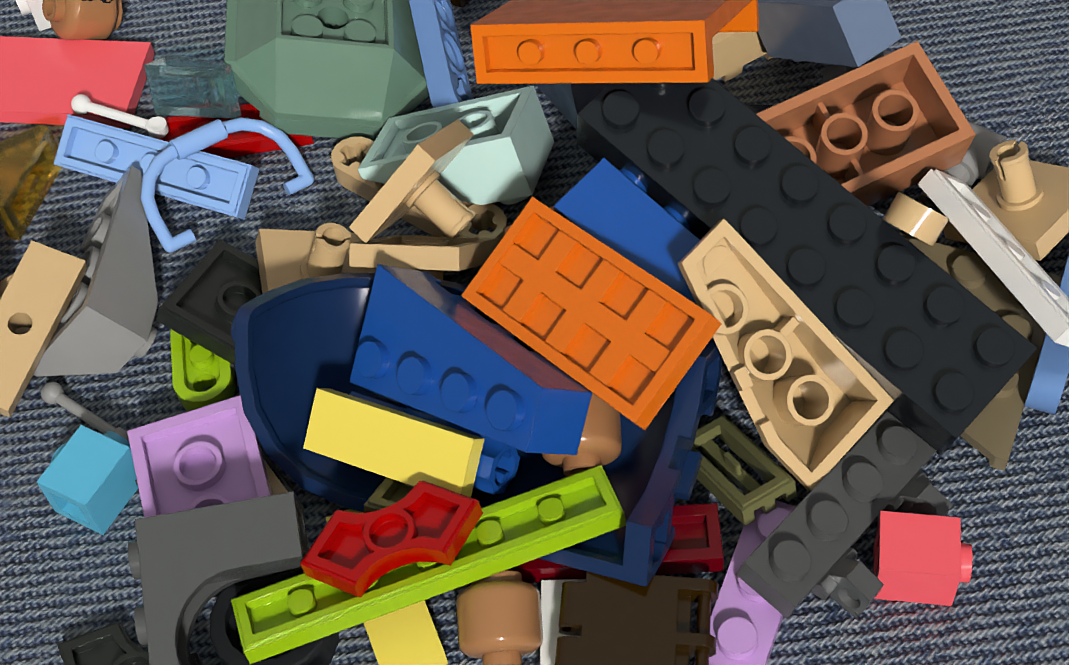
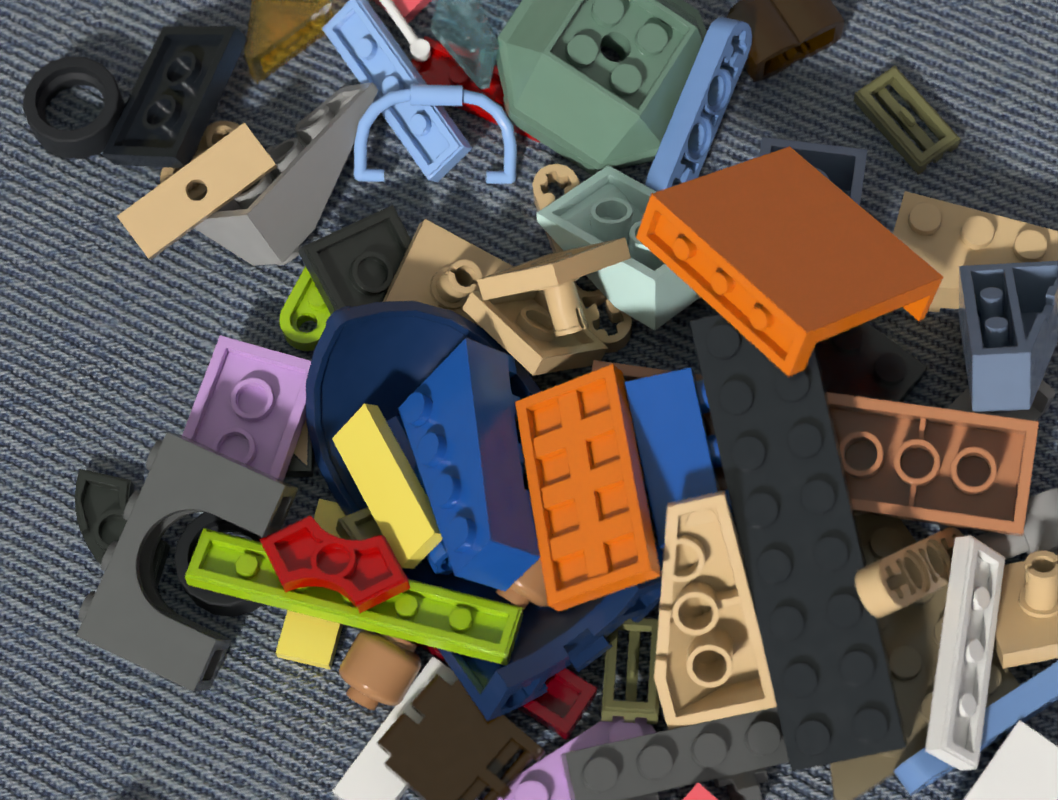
camera: 35 degrees right, 15 degrees up
(54, 394) = (197, 251): light grey hinge -> none
(90, 478) = (177, 349): medium azure brick -> none

